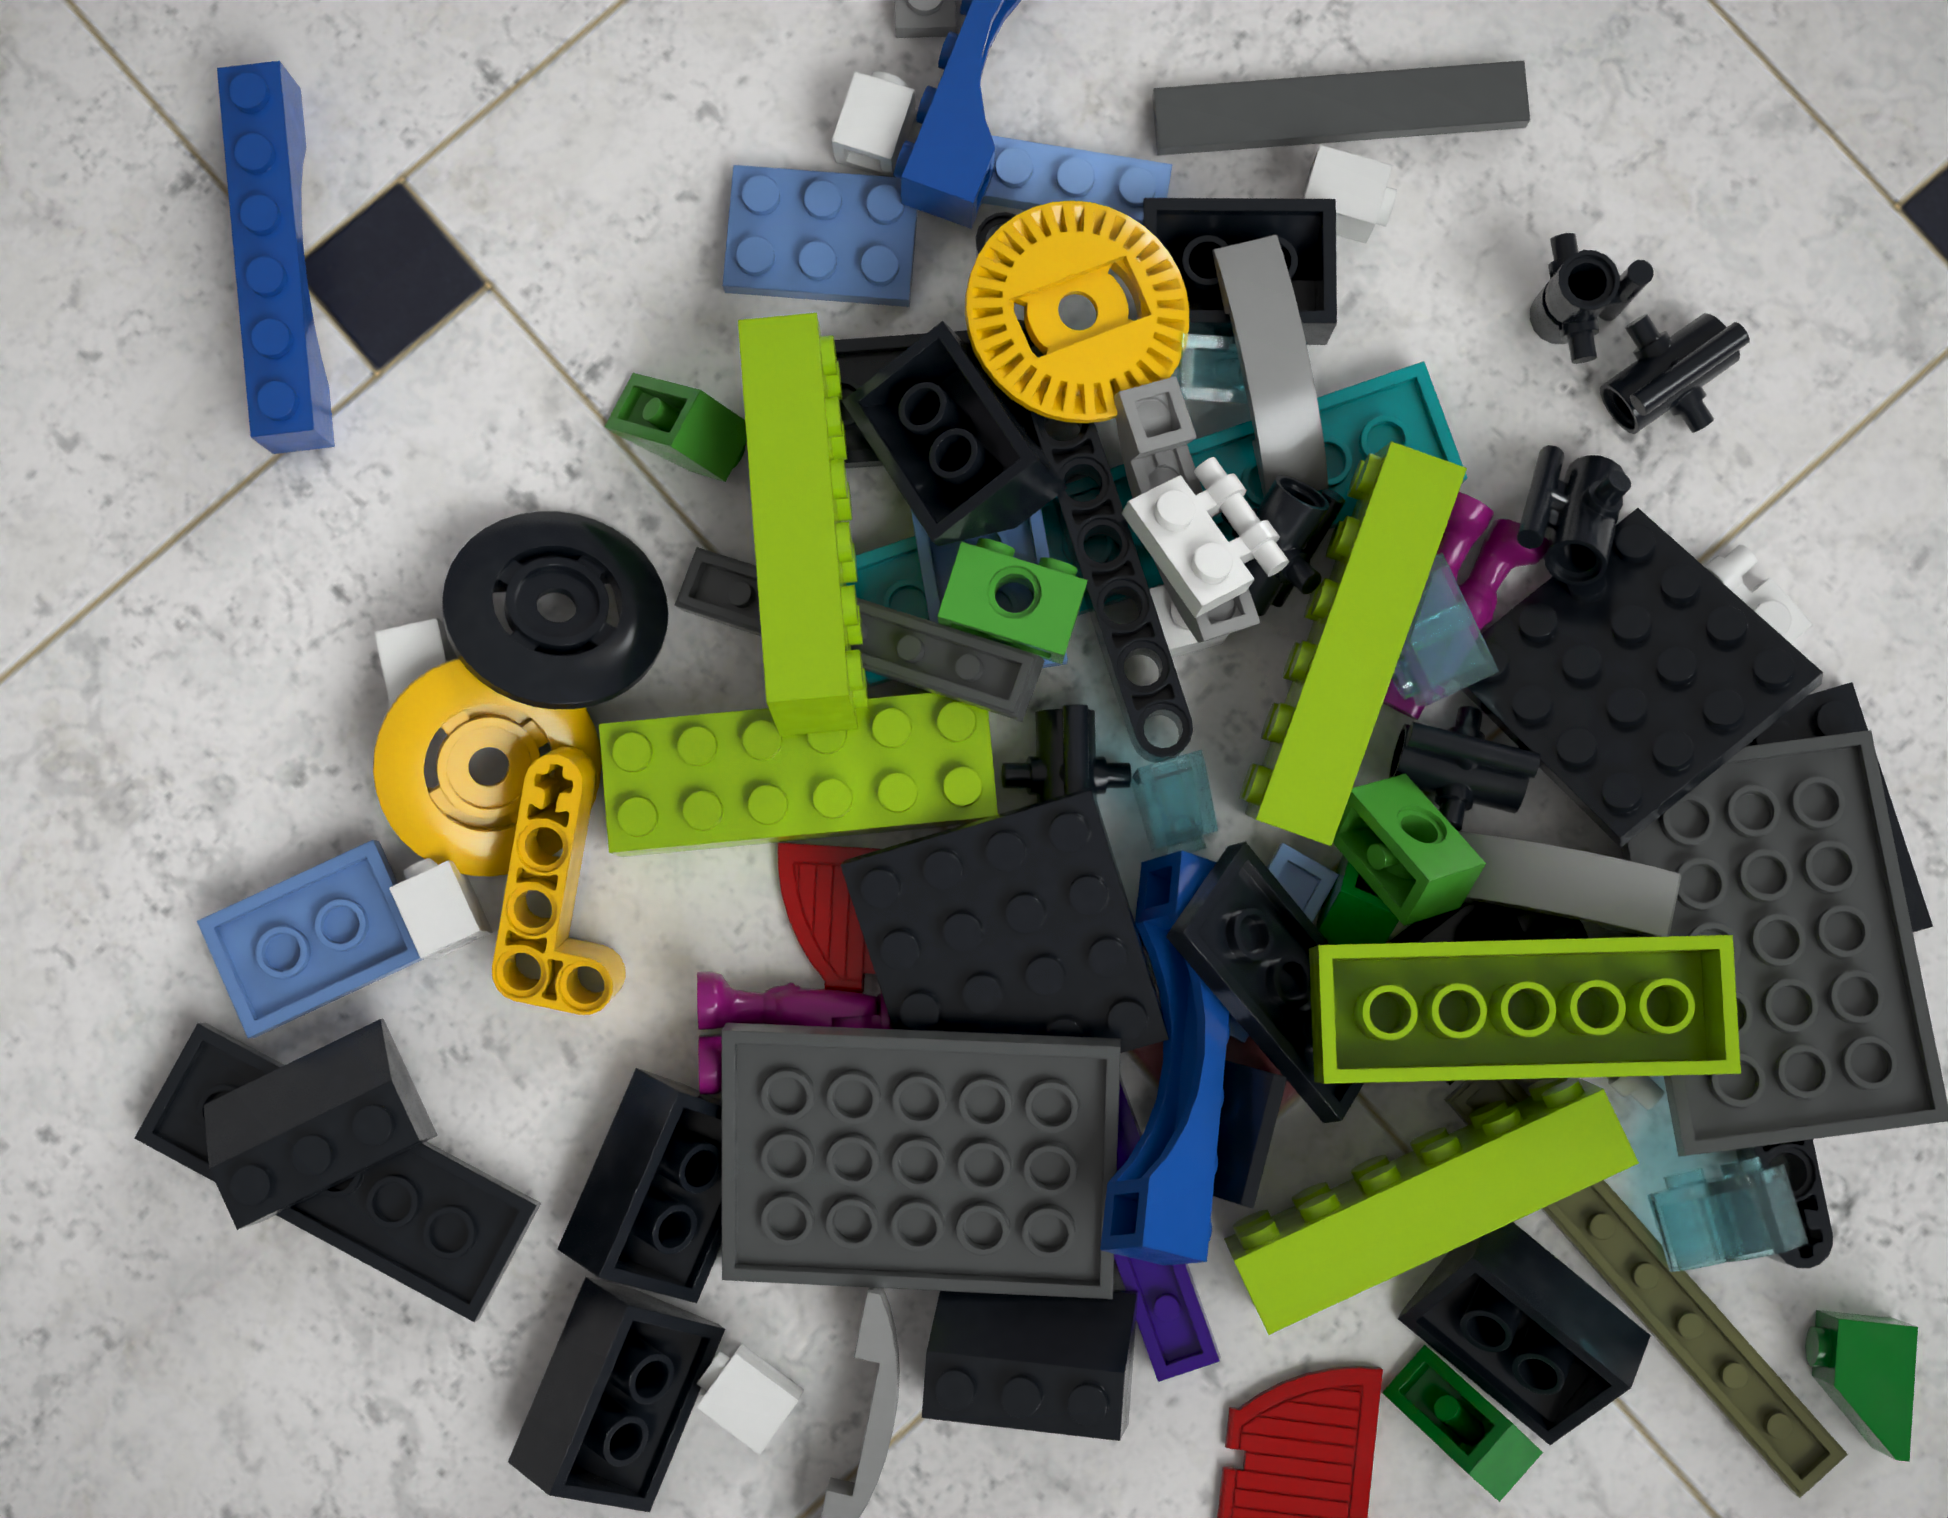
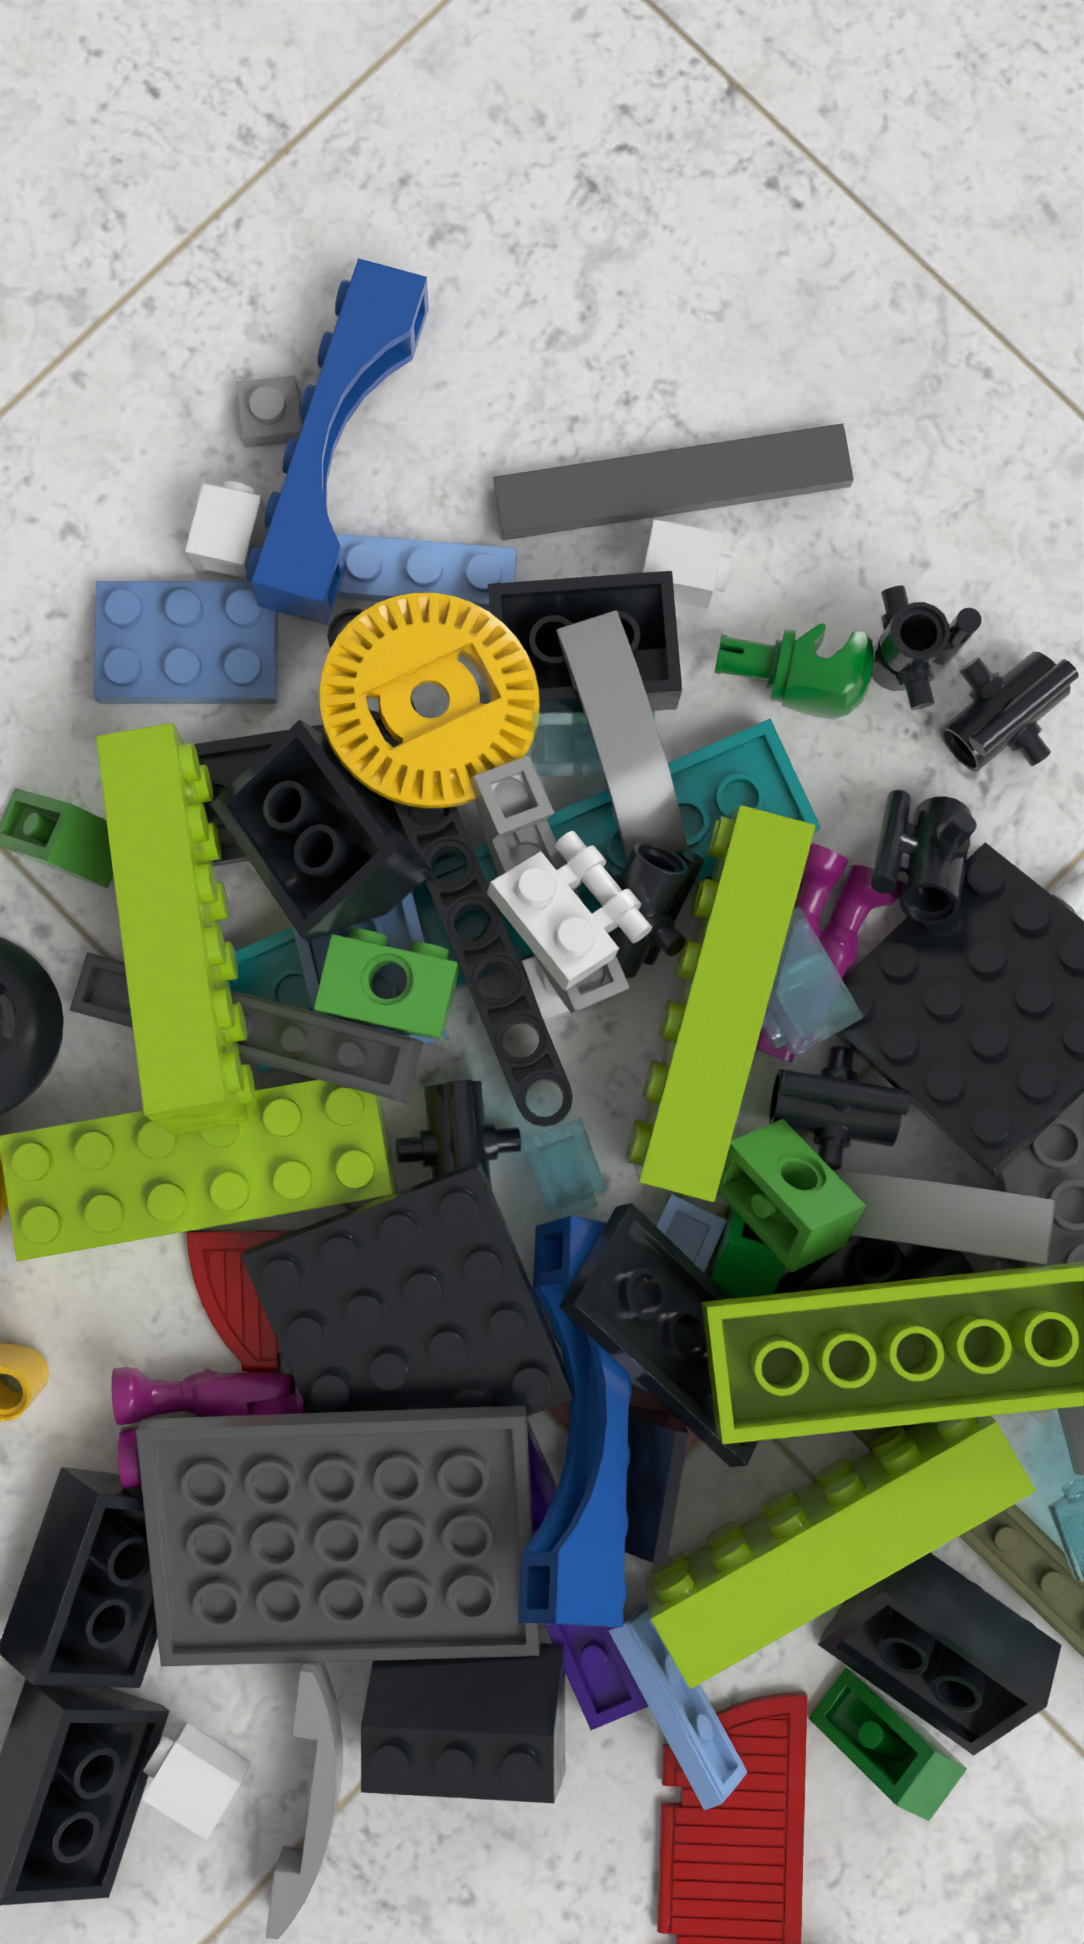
camera: 10 degrees left, 0 degrees up
(1251, 1361) = (681, 1712): none -> light blue tile
(1458, 319) = (800, 676): none -> green piece

